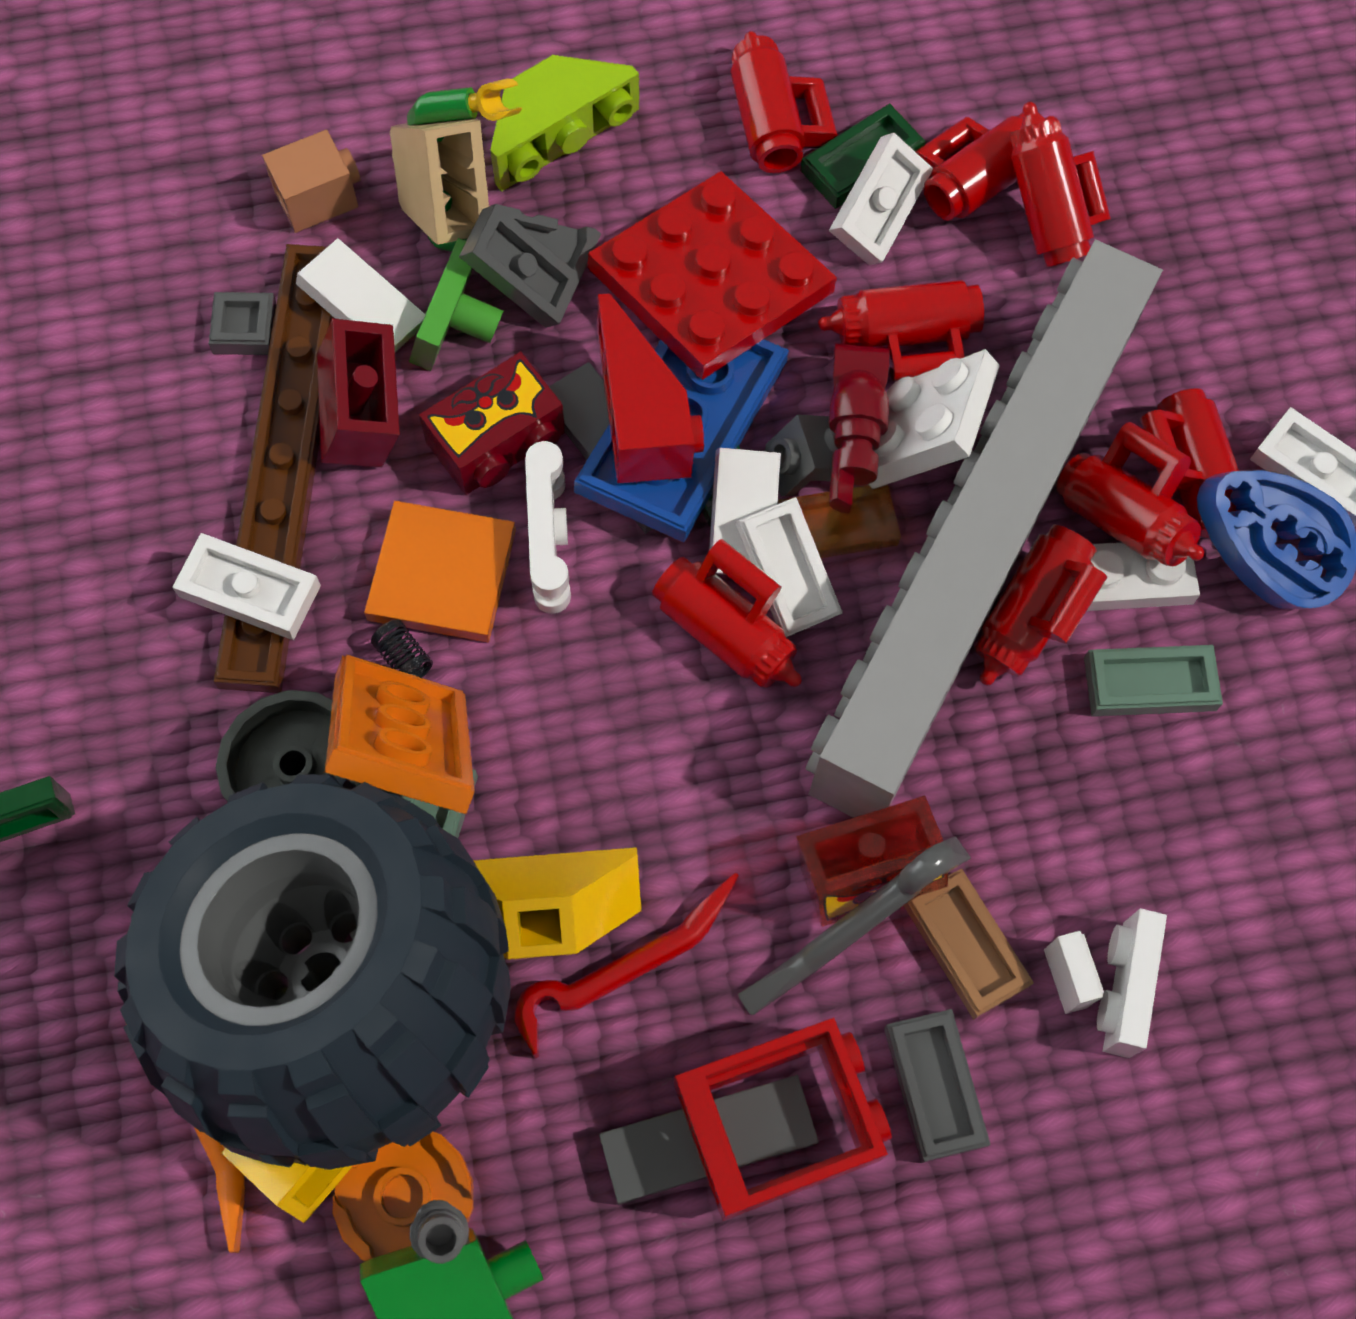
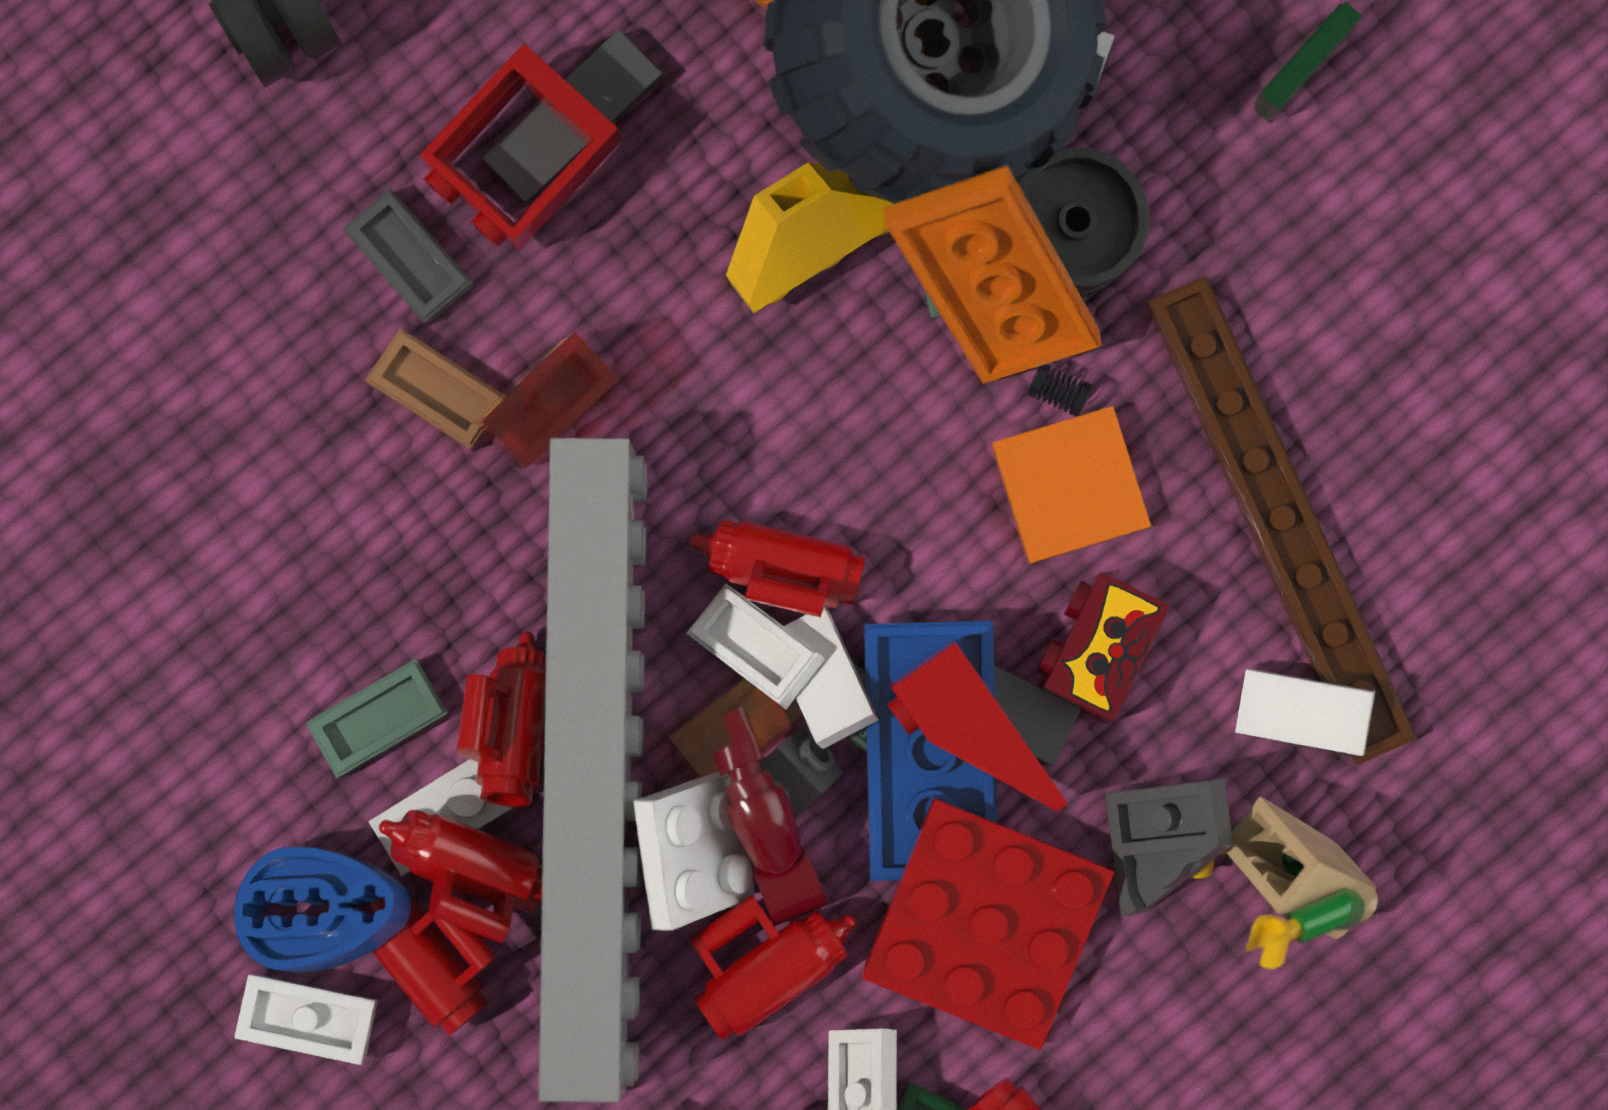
camera: 155 degrees right, 15 degrees up
(241, 323) = (1408, 636): dark grey tile -> none
(247, 586) = (1224, 364): white plate -> none
(313, 180) = (1433, 818): nougat brick -> none
(357, 393) = (1241, 601): dark red brick -> none
(455, 310) = (1213, 748): bright green tile -> none
(546, 527) = (996, 569): white plate -> none
(562, 108) = (1241, 1030): lime slope -> none
(621, 970) = (714, 216): red piece -> none
(855, 924) = (537, 336): dark grey piece -> none
(1074, 972) = (334, 402): white tile -> none
(1128, 1008) = (288, 444): white plate -> none

